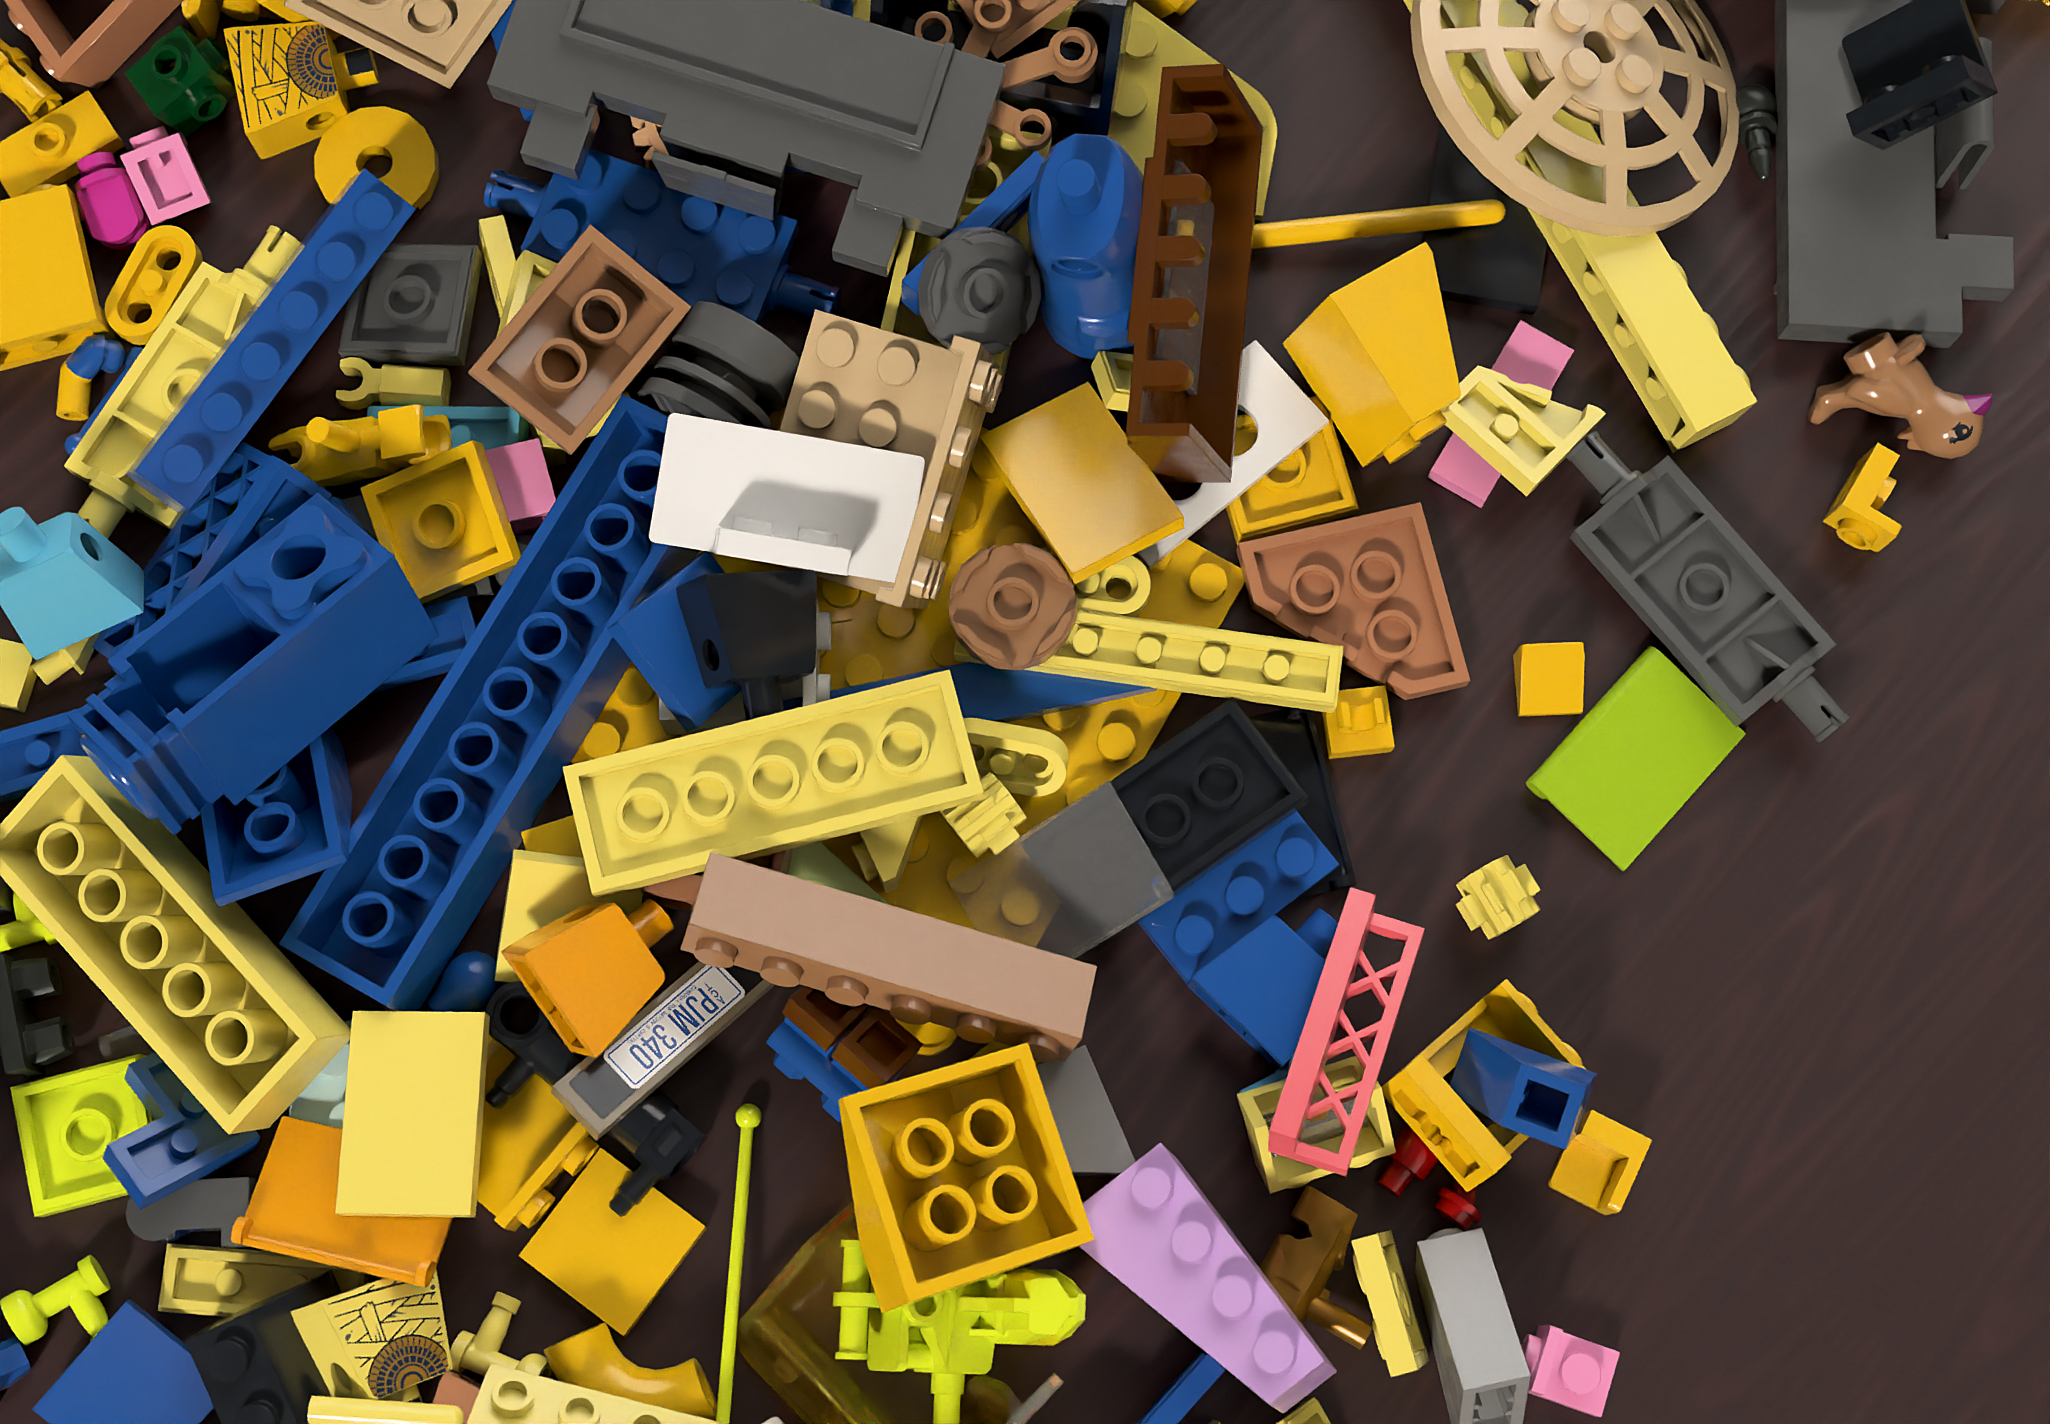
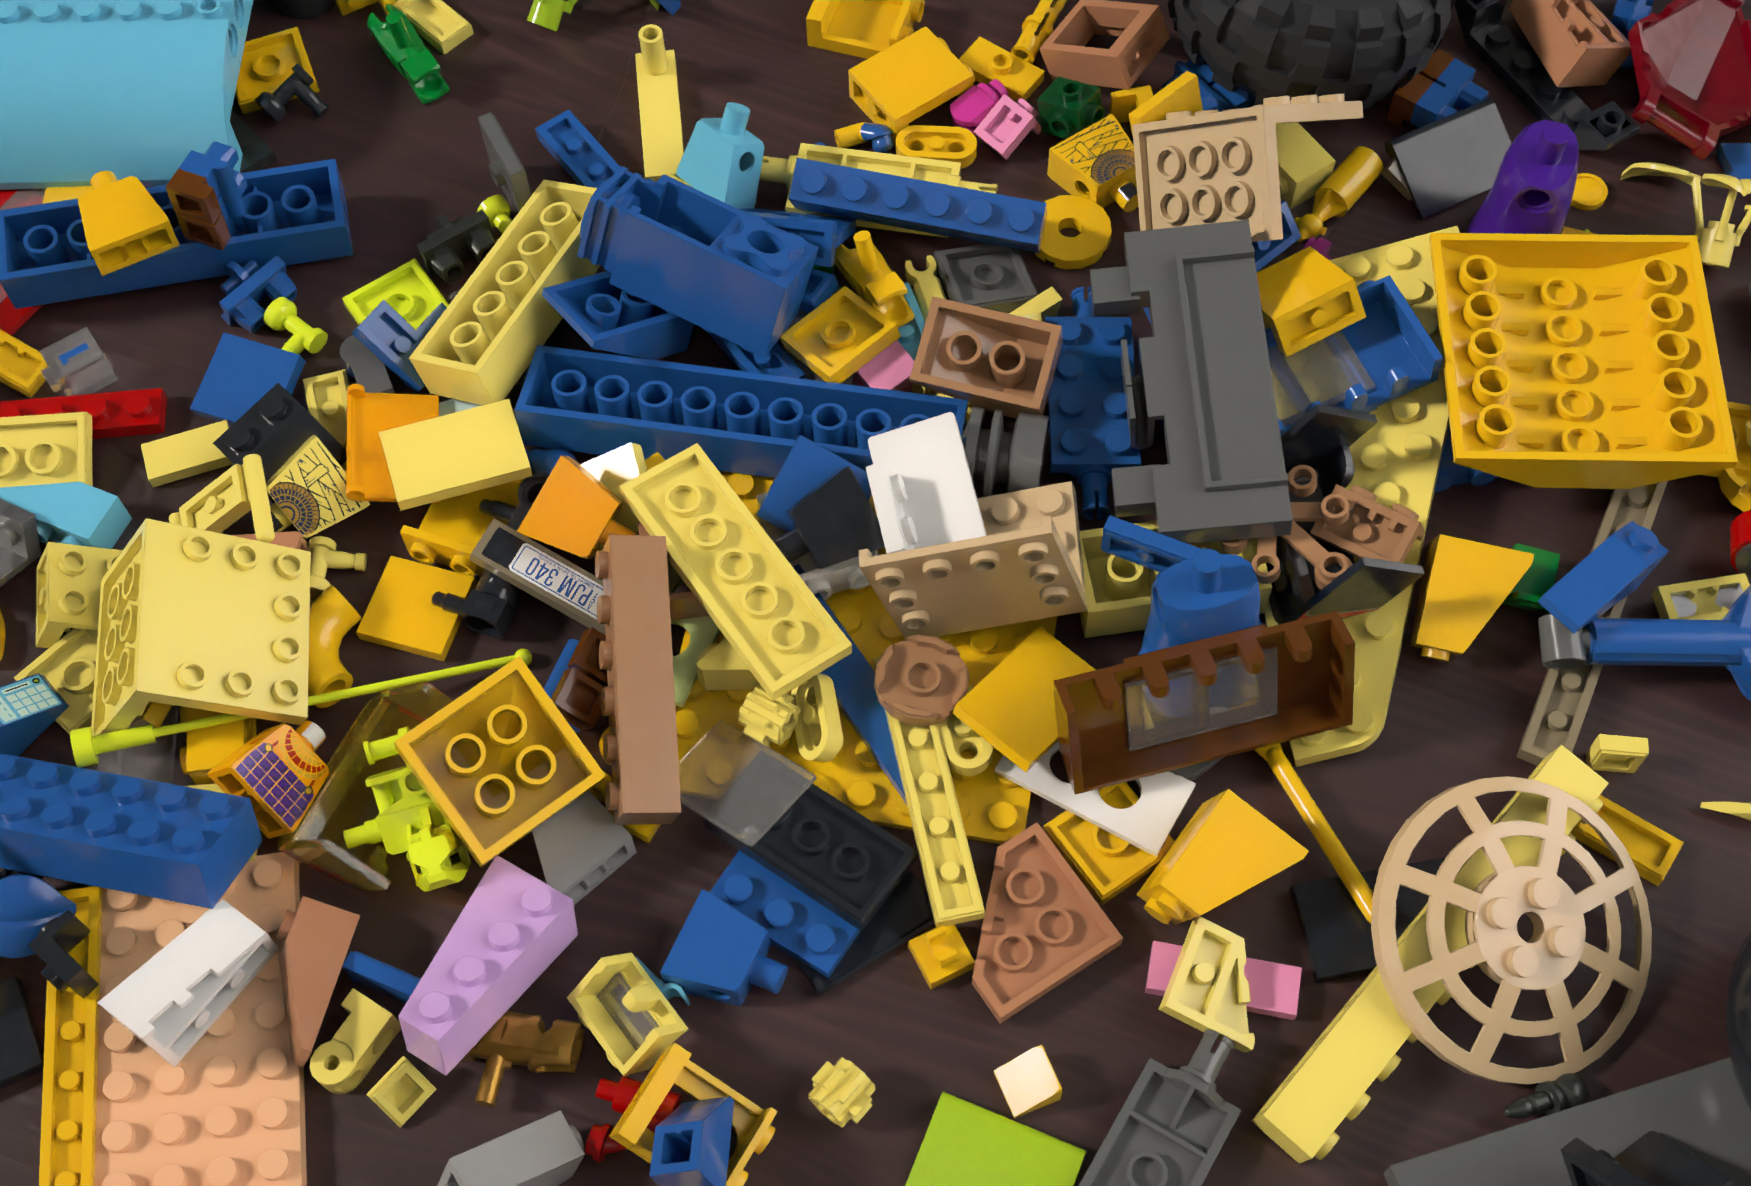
camera: 75 degrees right, 15 degrees down
(979, 289) = (1122, 566): dark grey tile -> none
(1320, 1027) = (693, 976): coral fence -> none
(1390, 1302) = (509, 1097): light yellow plate -> none

